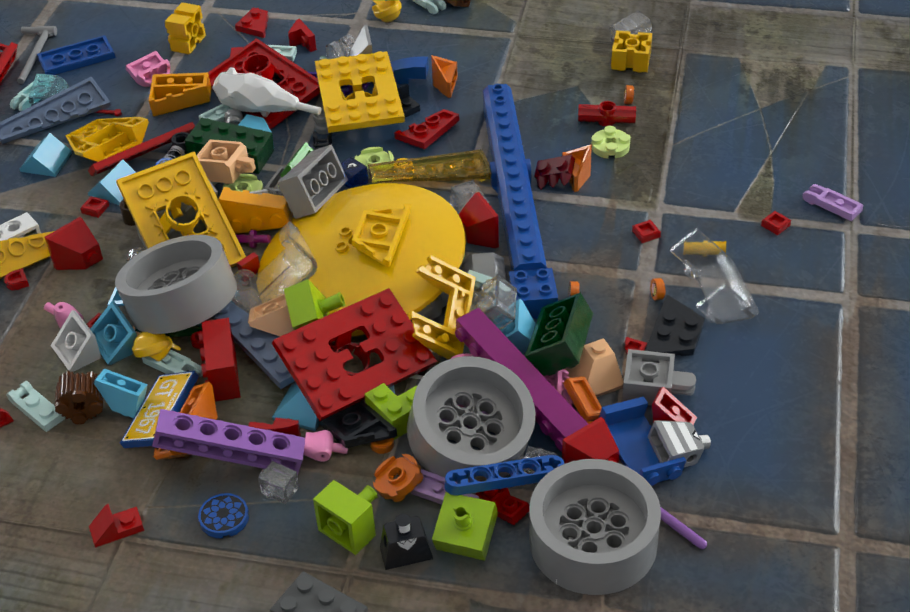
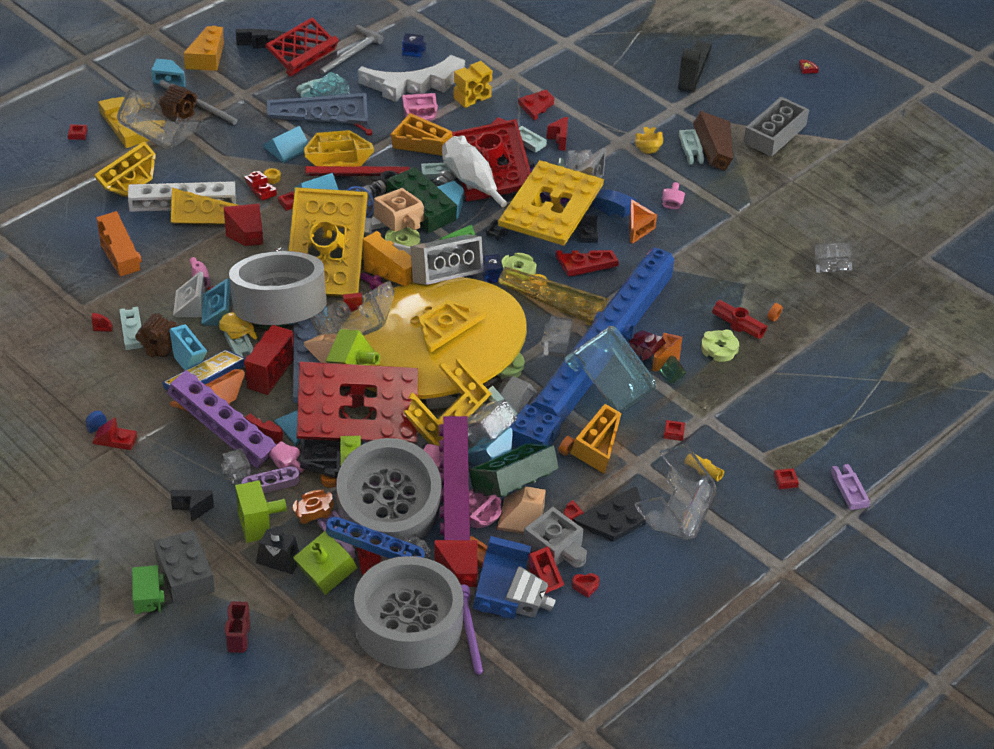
camera: 30 degrees right, 0 degrees up
(16, 280) = (192, 230): red tile -> none
(49, 206) = (259, 185): none -> red slope
(55, 192) = (273, 175): none -> yellow tile
(76, 55) = (375, 63): blue tile -> none
(81, 520) = (95, 420): none -> blue tile
(94, 21) = (413, 45): none -> clear blue brick
(108, 60) = (396, 84): none -> white arch
(223, 515) = (185, 468): blue tile -> none
(267, 542) = (194, 500): none -> black slope
(326, 468) = (285, 481): none -> lavender beam
(450, 44) = (673, 197): none -> bright pink piece
(480, 222) = (543, 355): red slope -> none
(563, 198) = (613, 369): none -> clear light blue windscreen
(583, 397) = (492, 523): orange tile -> none
(595, 181) = (672, 370): none -> clear green tile
(598, 271) = (597, 438): none -> light orange wedge
(631, 51) = (813, 276): yellow brick -> none
(657, 289) = (632, 478): orange tile -> none
(711, 405) = (585, 584): none -> red tile

